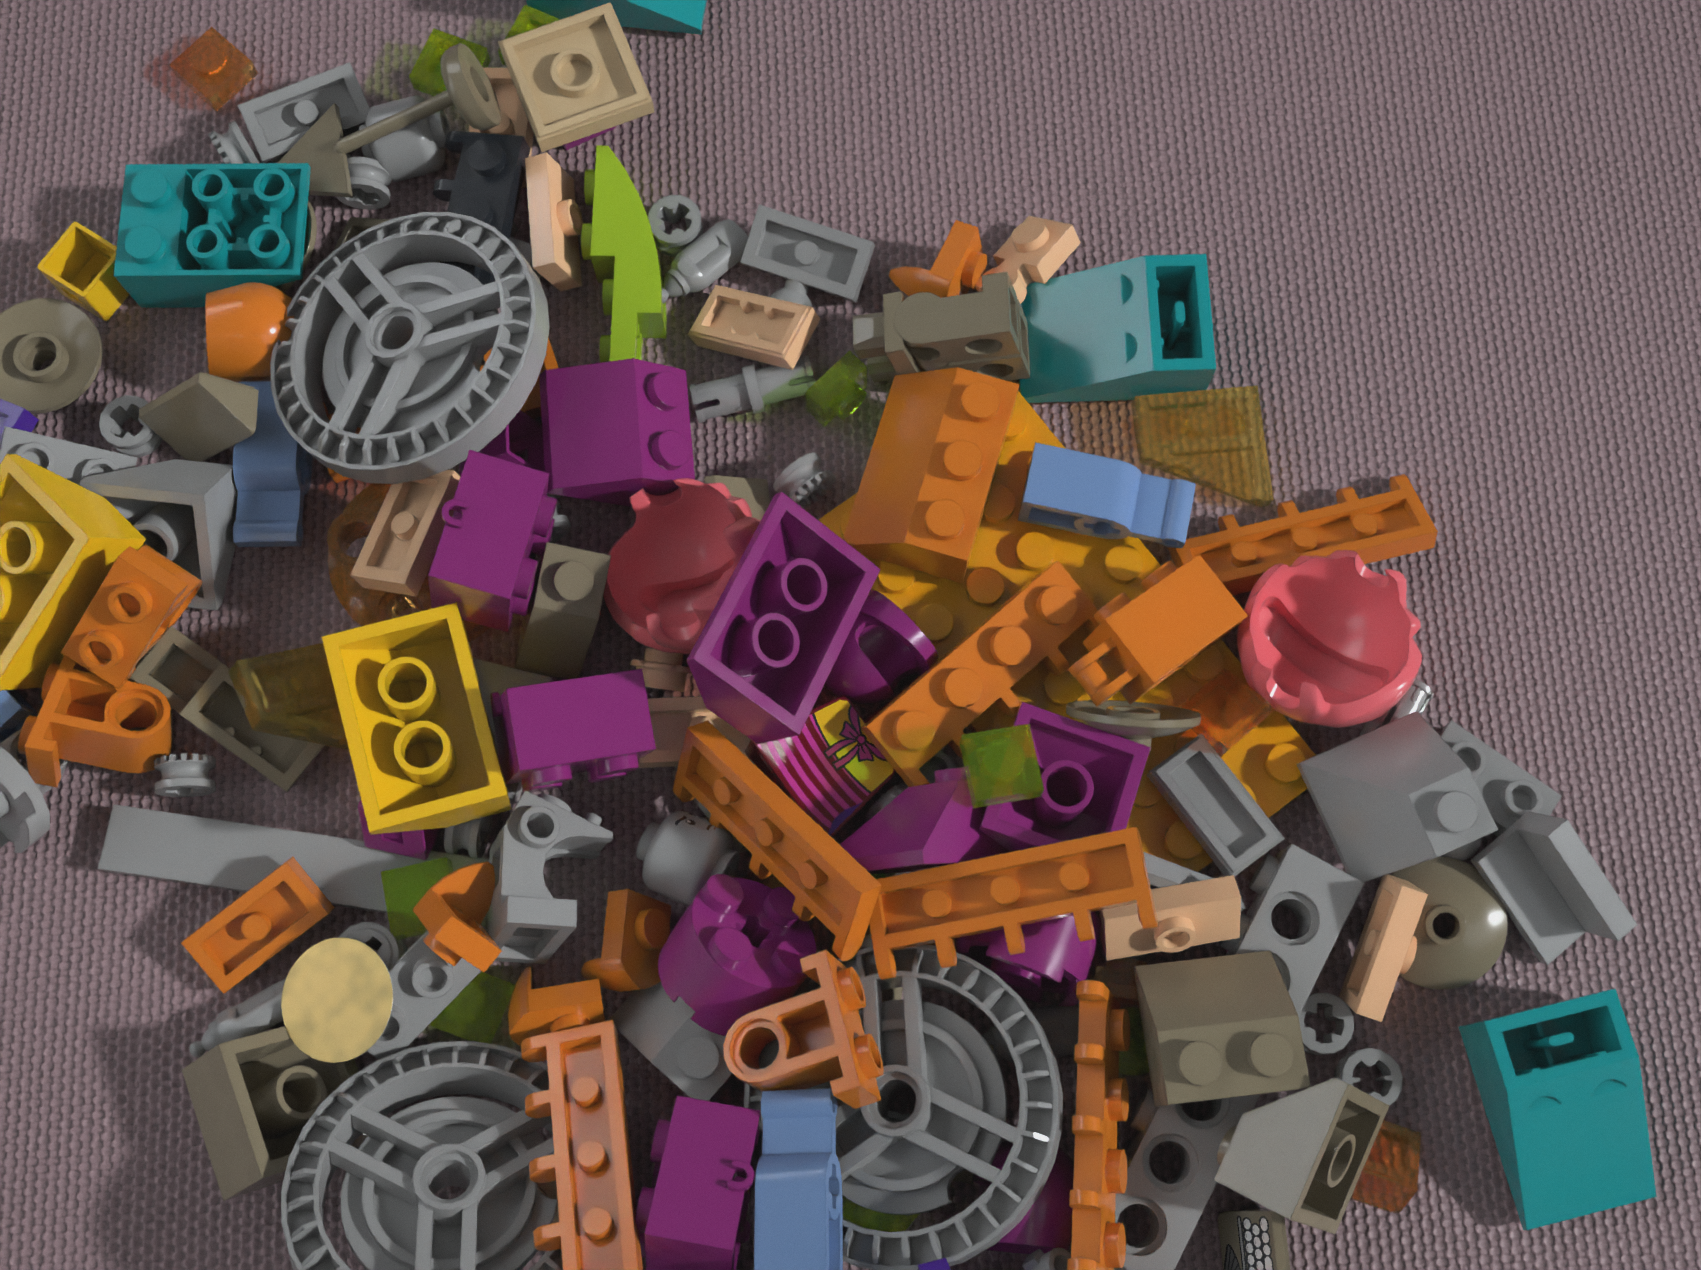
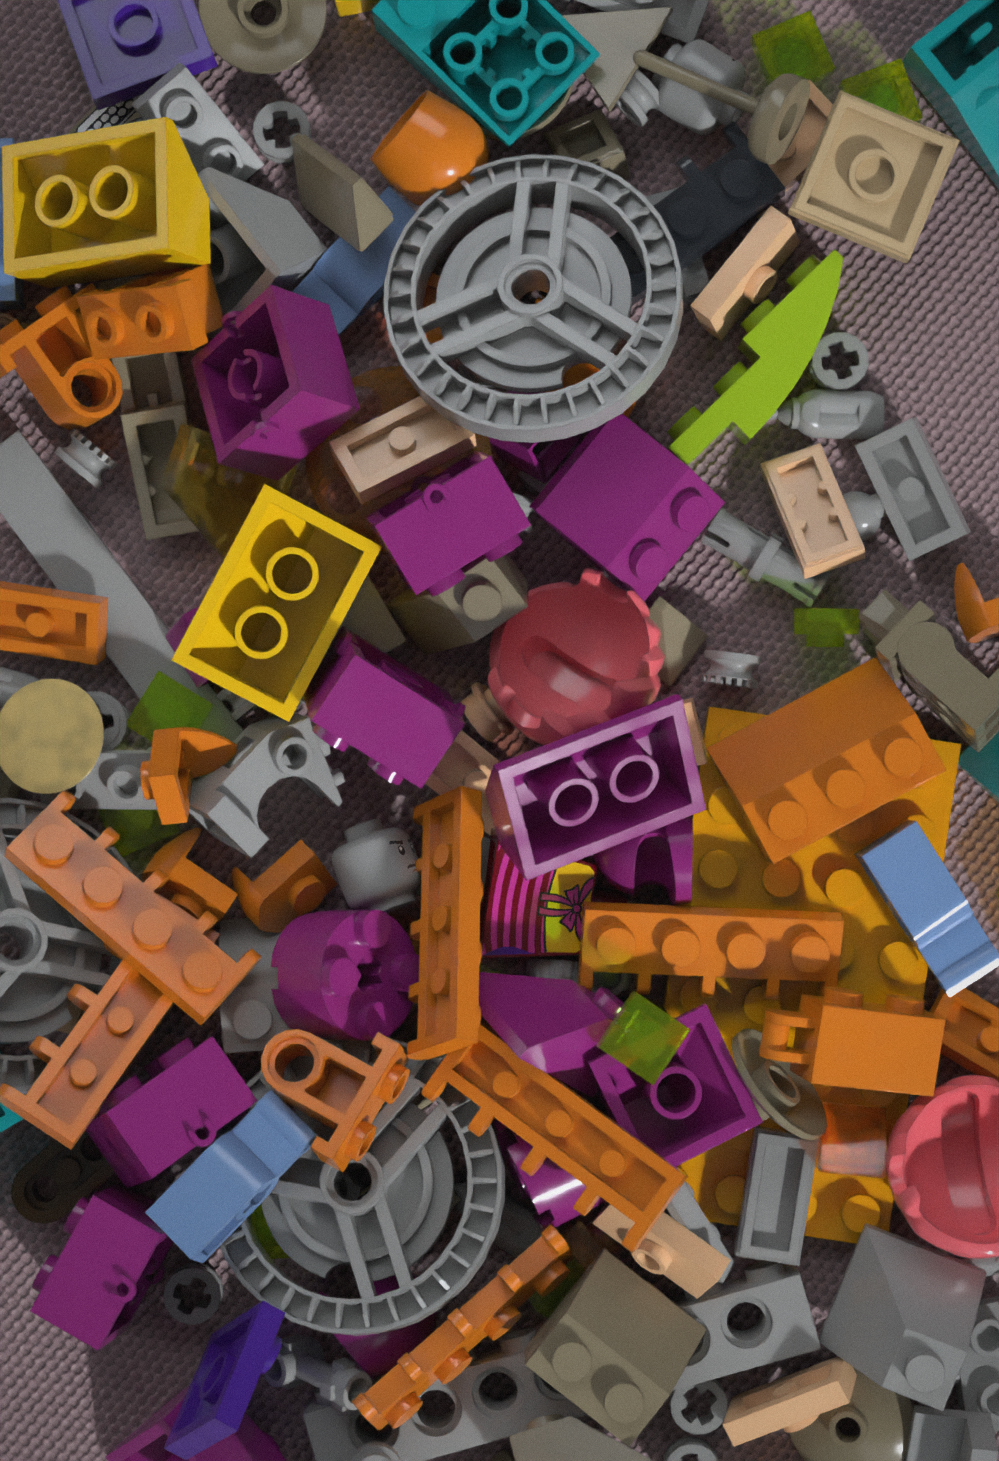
camera: 45 degrees right, 15 degrees up
(271, 577) = (274, 383): none -> magenta brick
(519, 1068) = (127, 911): none -> orange hinge

